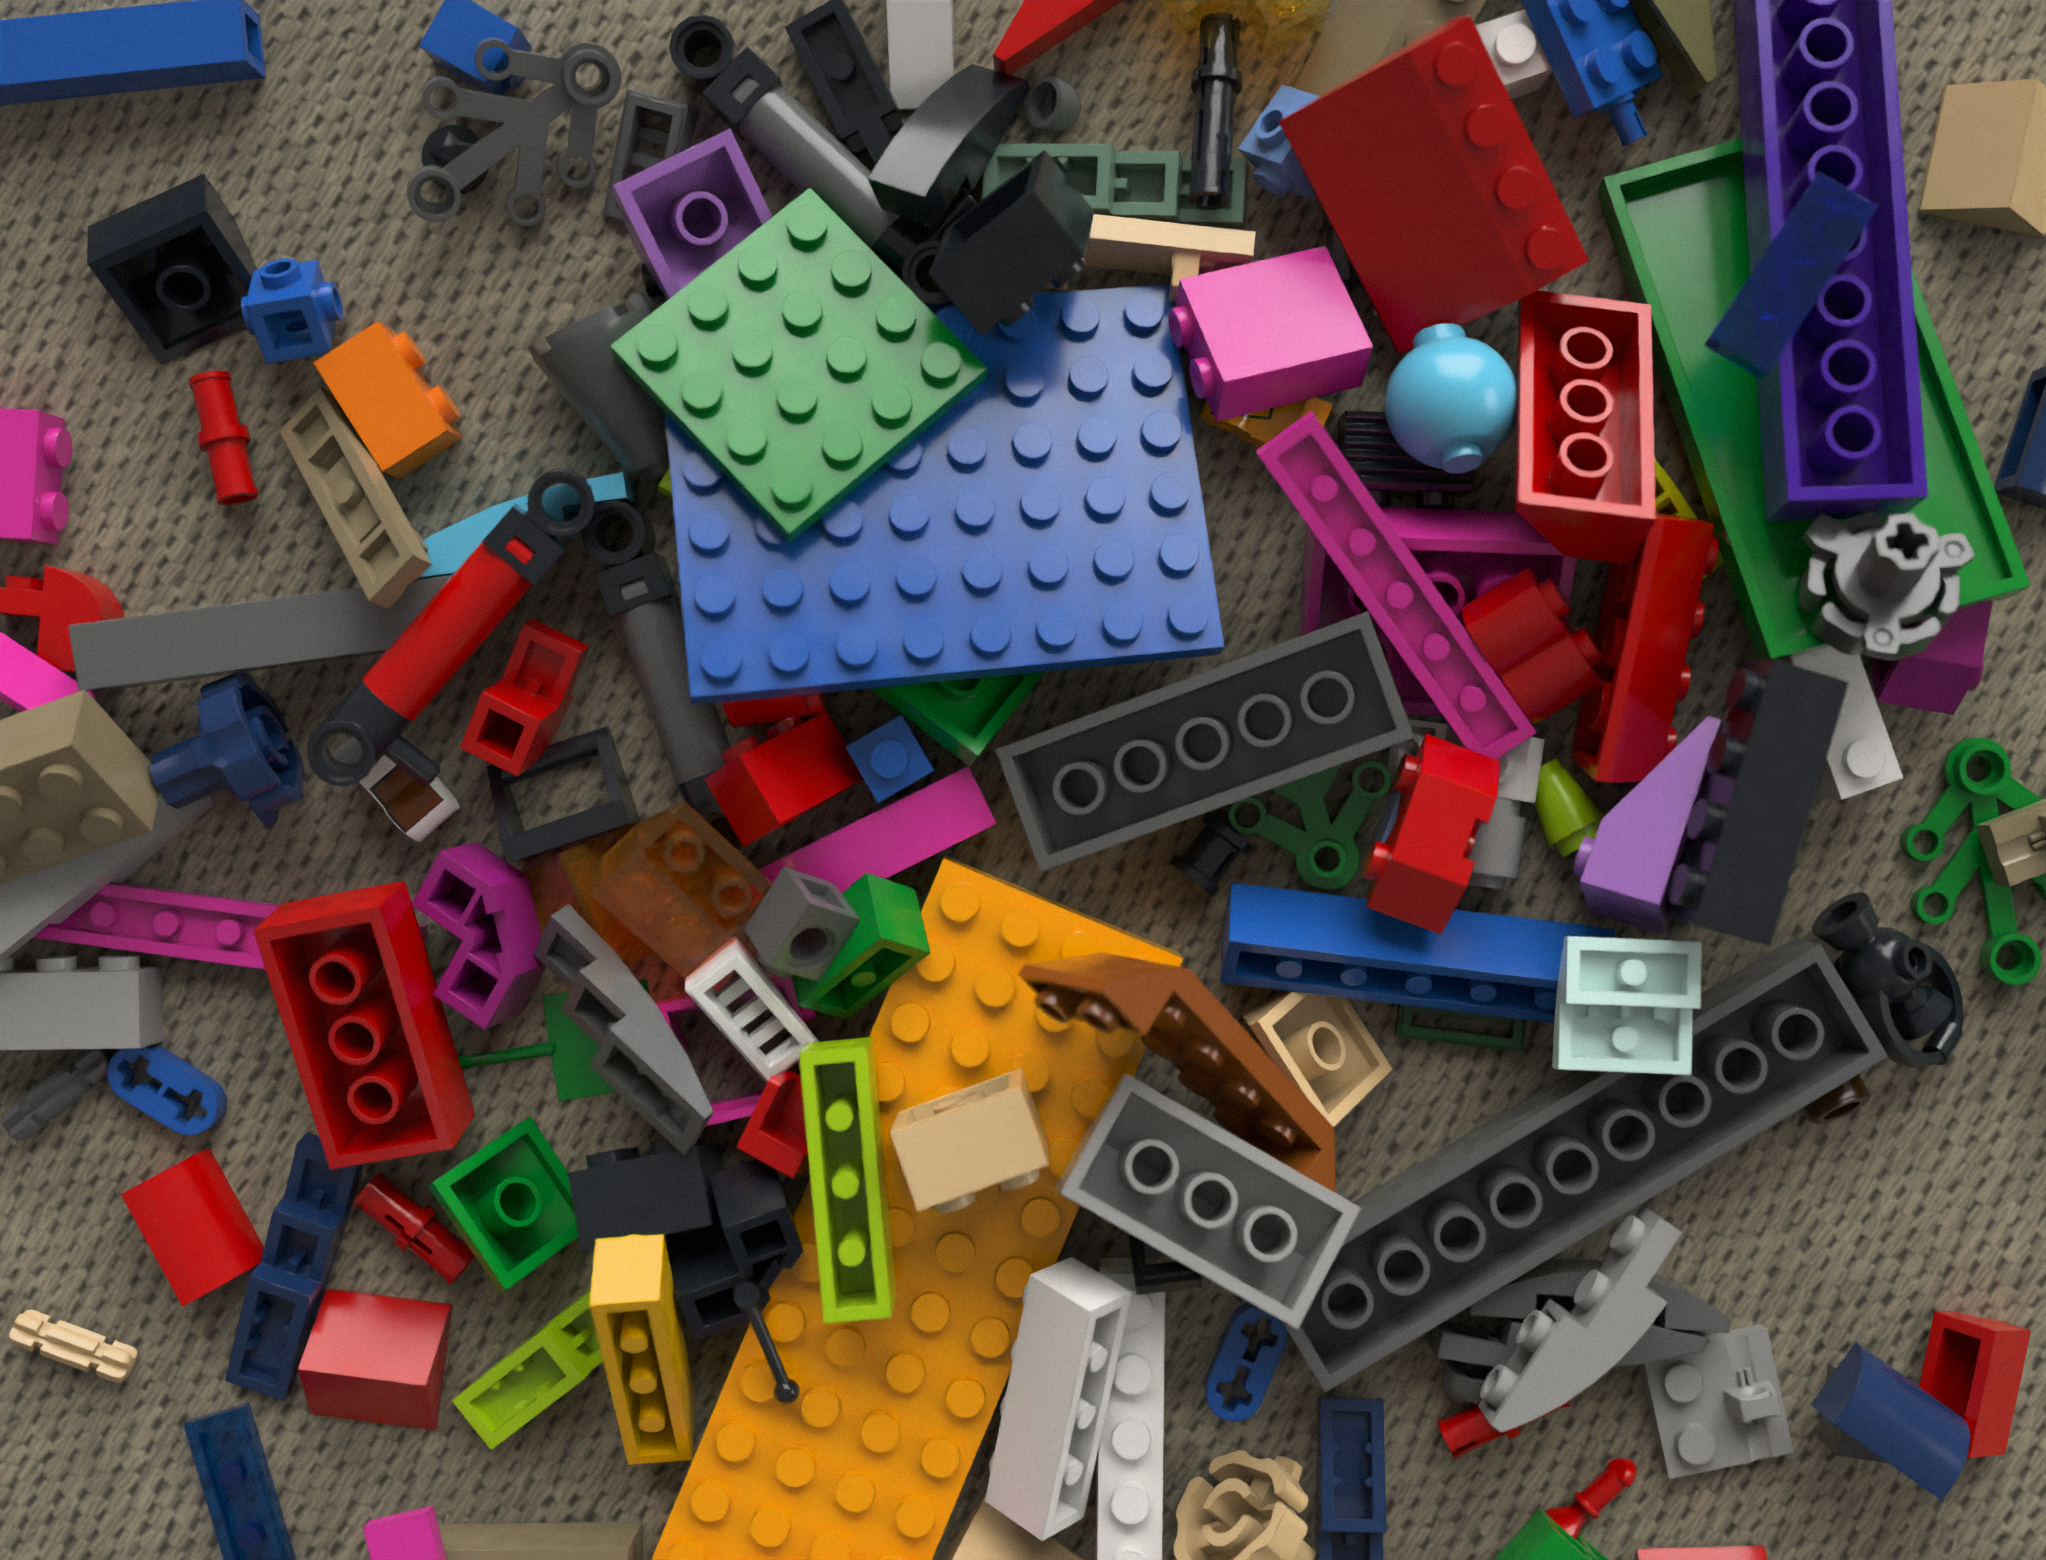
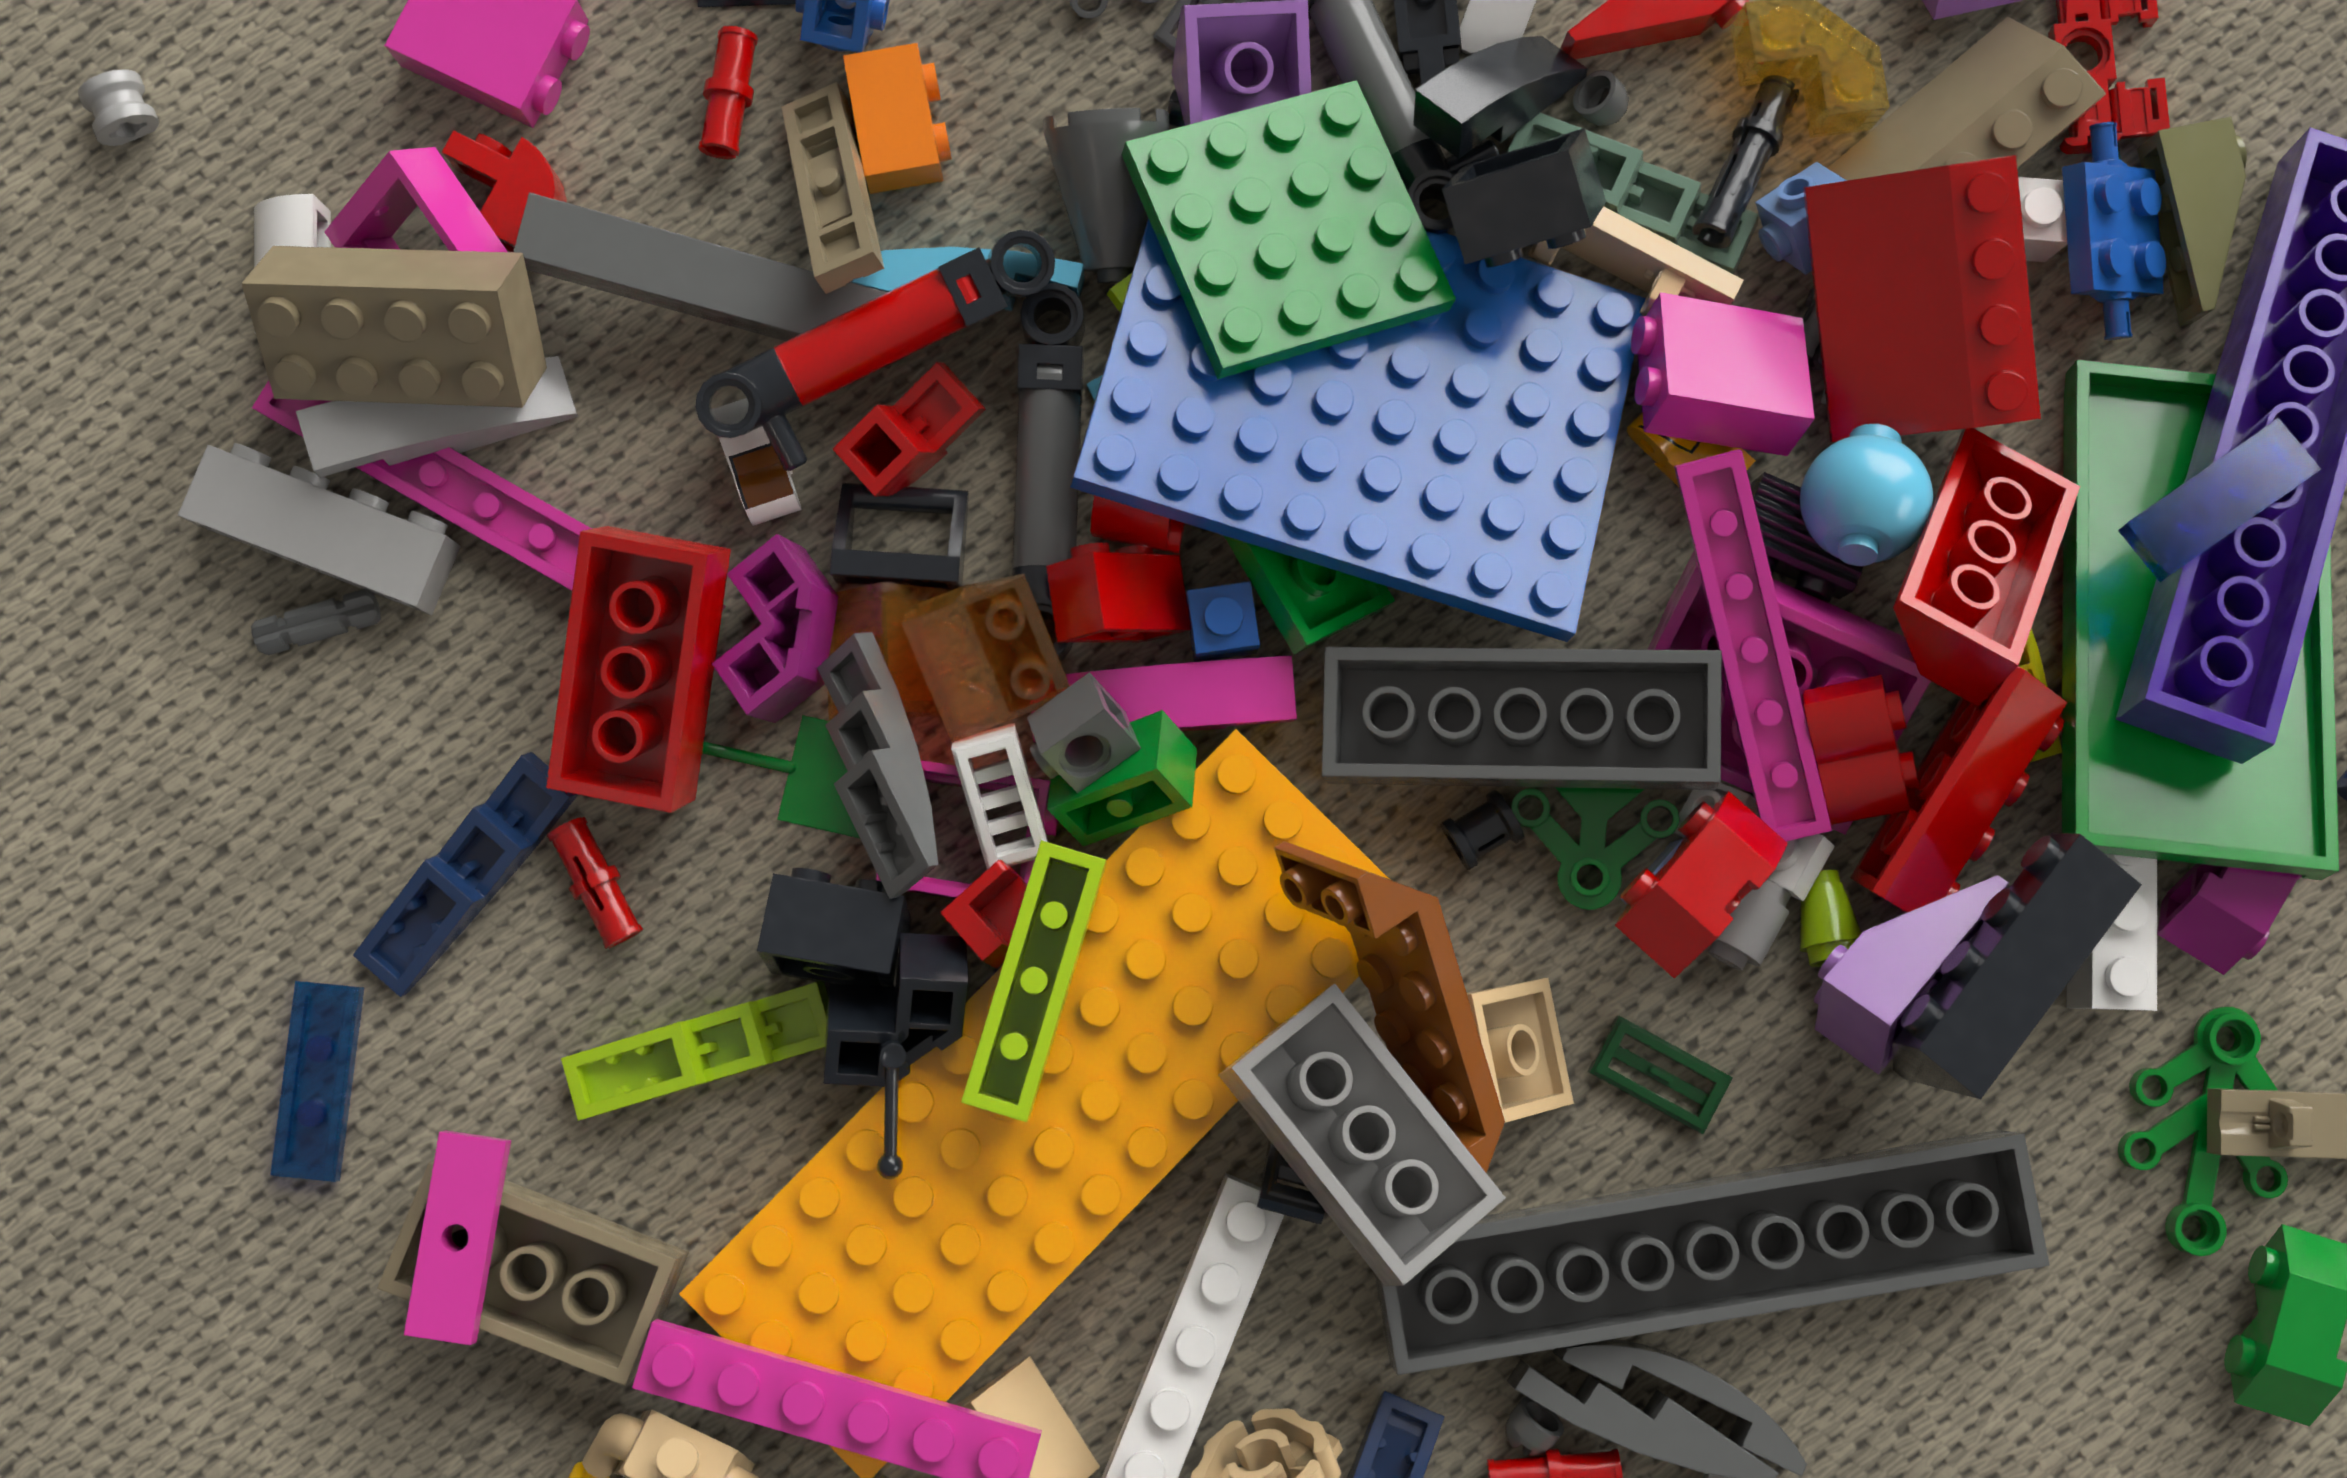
camera: 15 degrees right, 5 degrees down
(73, 1346) = (223, 865): tan axle -> none
(158, 1100) = (406, 667): blue beam -> none
(195, 1226) = (390, 796): red brick -> none
(236, 749) = (624, 369): dark blue piece -> none
(376, 1359) = (504, 994): red slope -> none
(510, 1203) = (699, 893): green slope -> none
(643, 1348) = (773, 1070): yellow brick -> none
(971, 1142) = (1167, 989): tan brick -> none
(1057, 1396) = (1141, 1276): white brick -> none
(1259, 1367) = (1339, 1338): blue beam -> none
(1358, 953) = (1631, 1000): blue brick -> none
(1570, 1351) = (1646, 1426): light grey slope -> none
(1626, 1005) = (1822, 1114): light aqua slope -> none
(1838, 1101) = (1983, 1296): dark brown tile -> none
(1882, 581) = (2205, 805): dark grey piece -> none
(1887, 970) = (2076, 1190): black piece -> none

